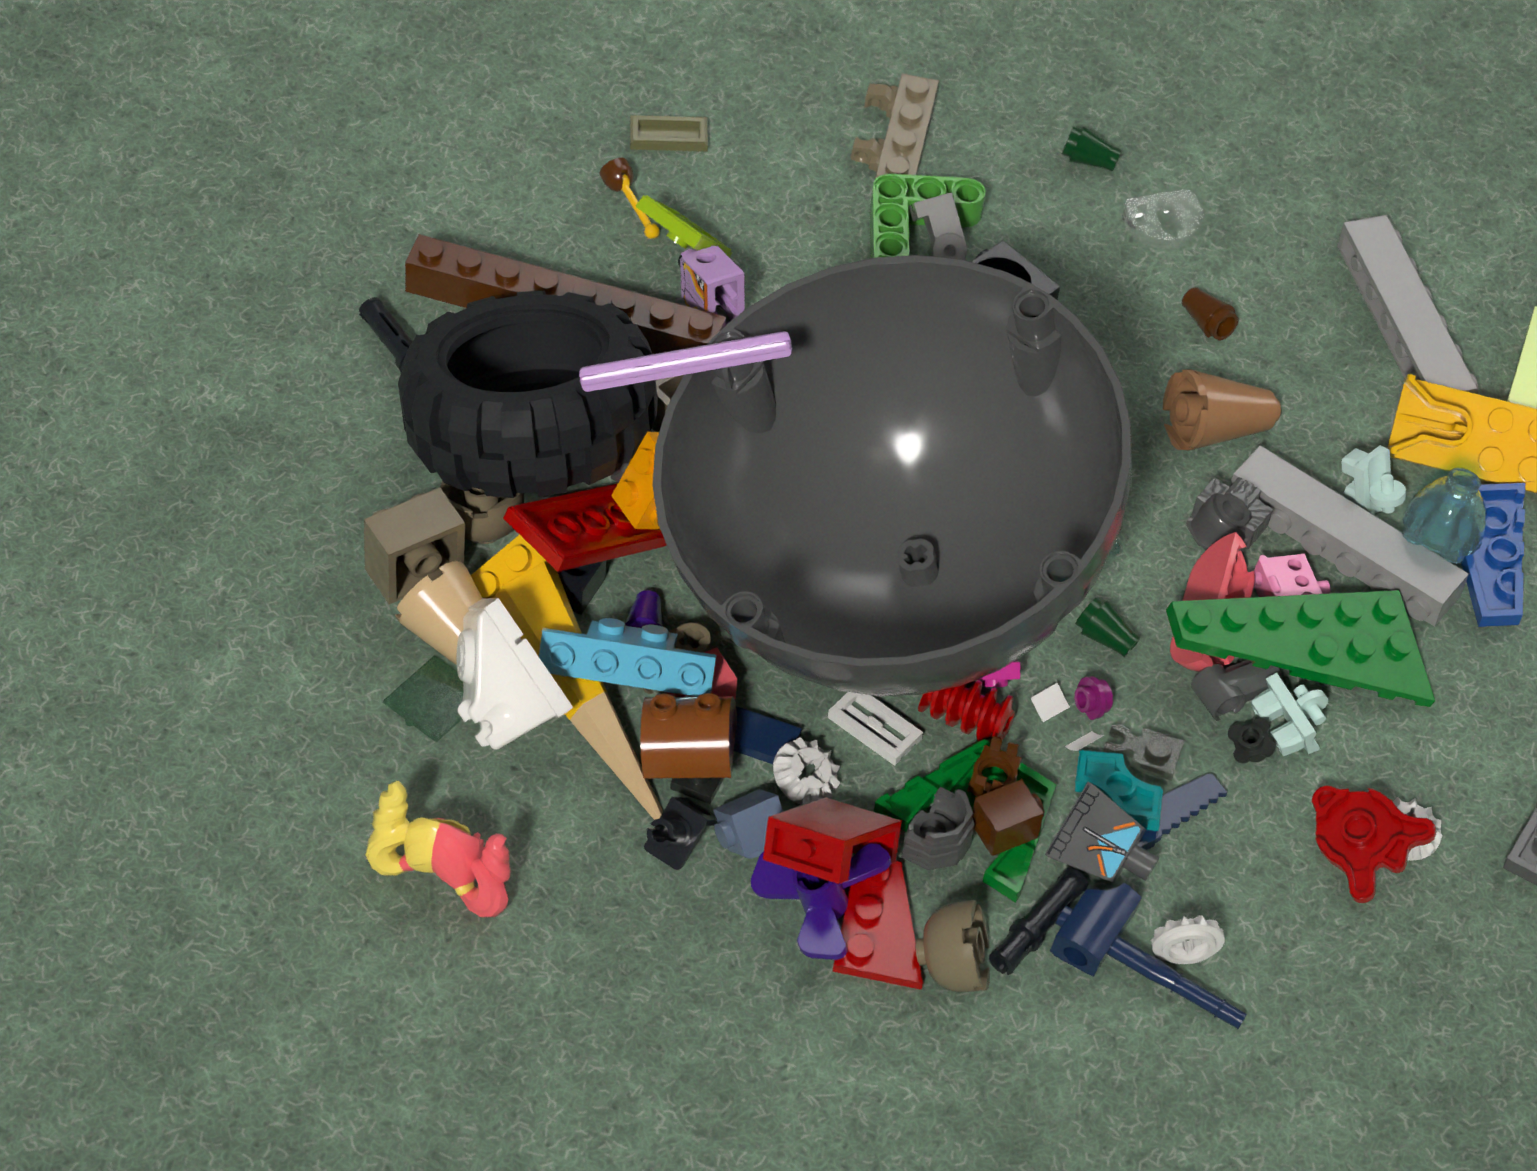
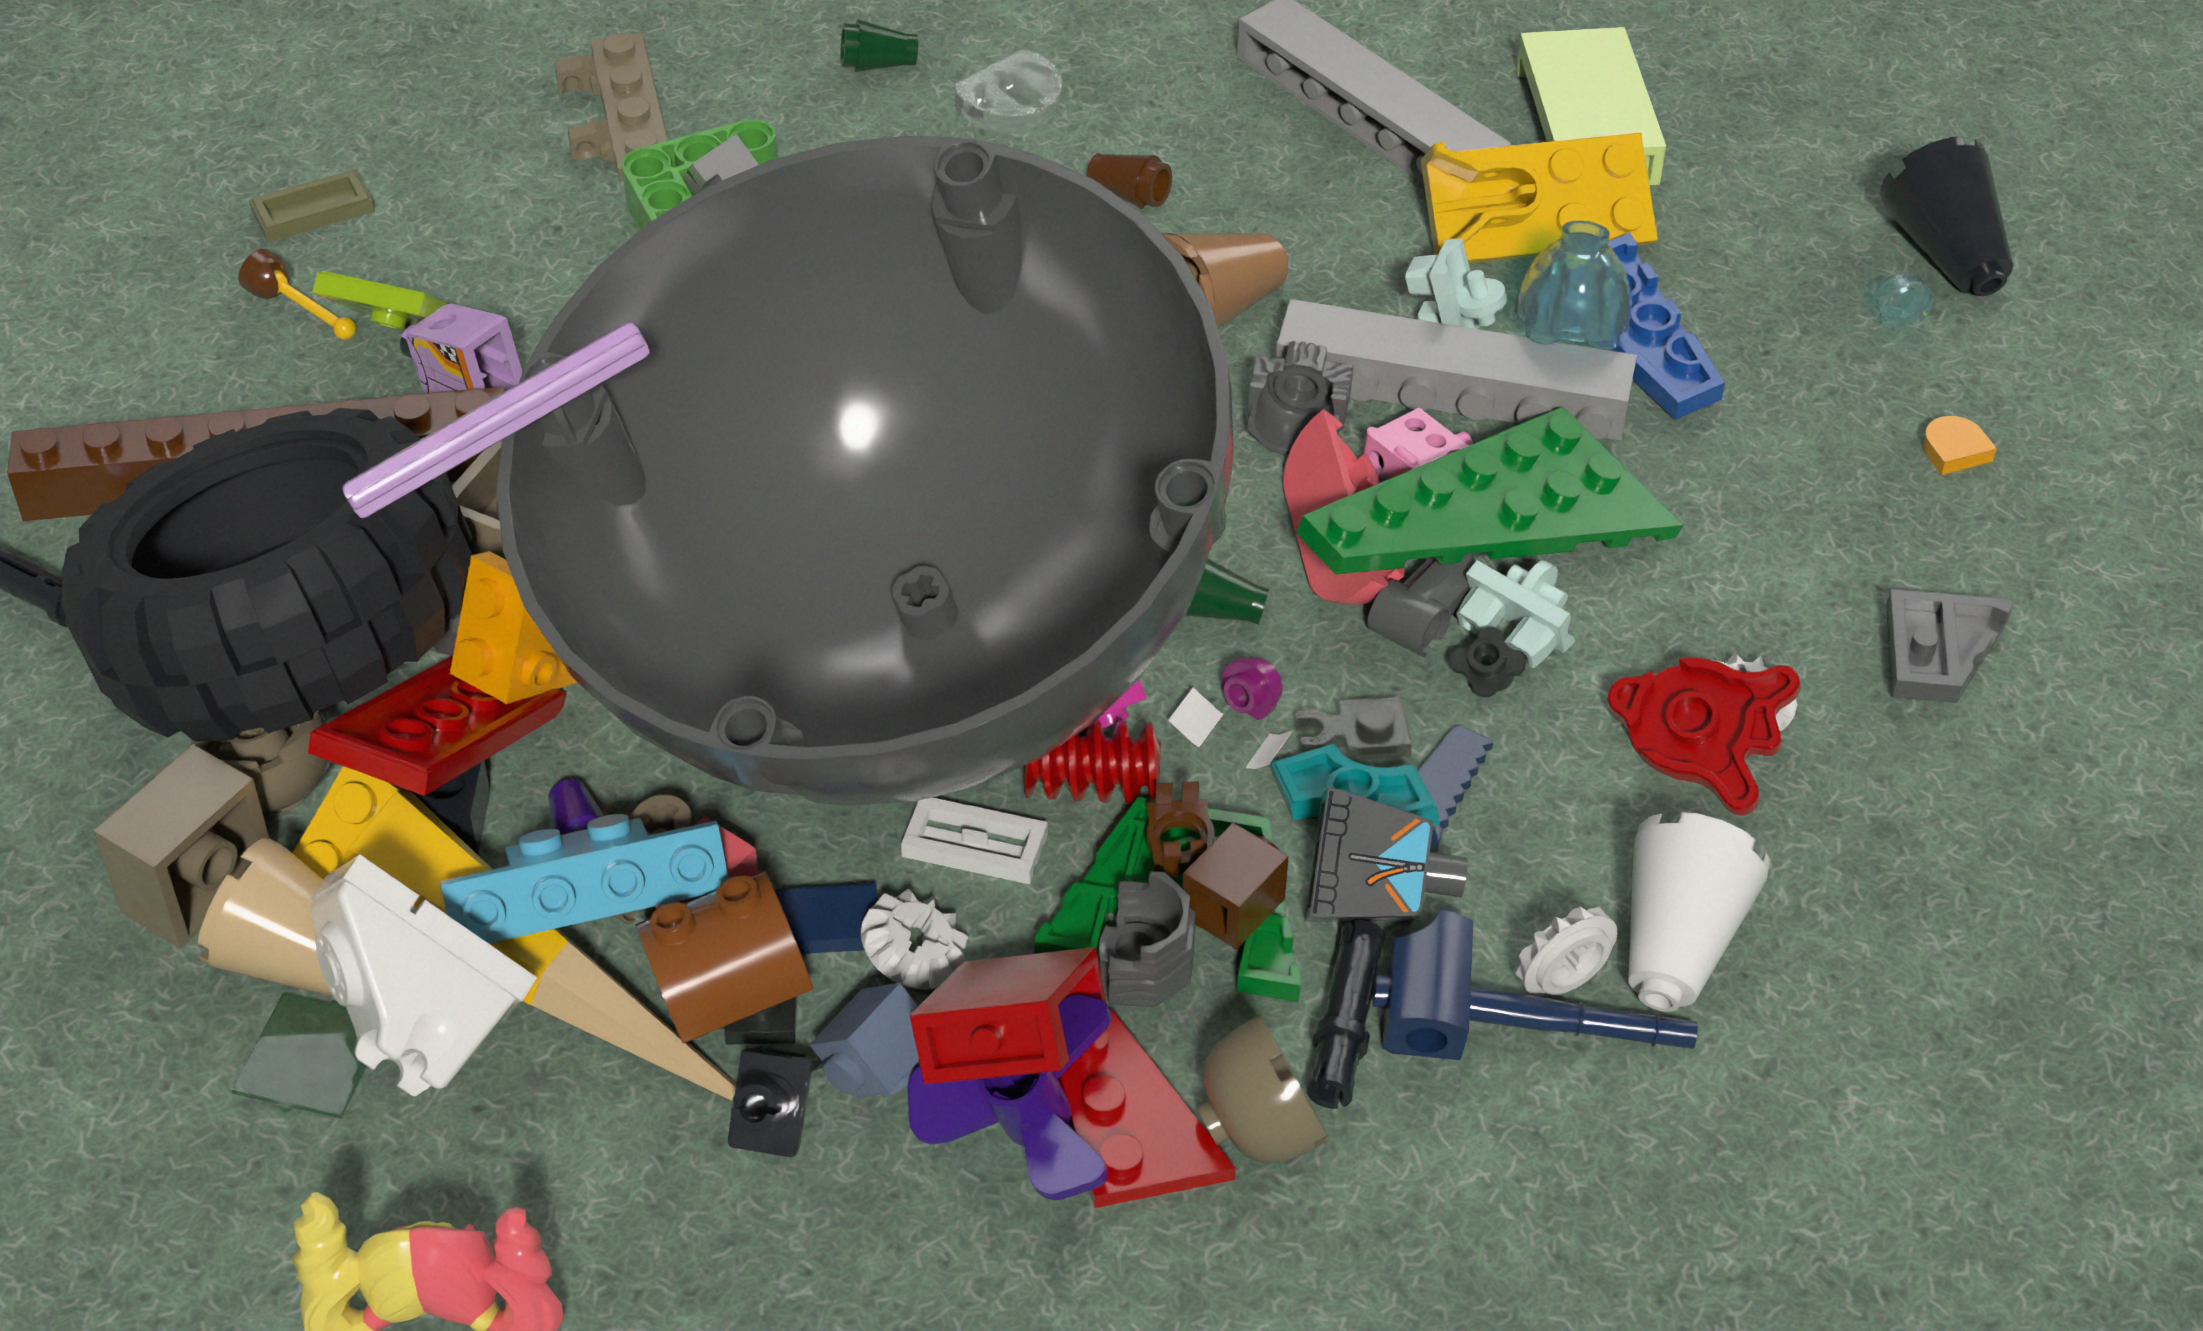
camera: 20 degrees left, 5 degrees down
(1278, 942) = (1687, 903): none -> white cone

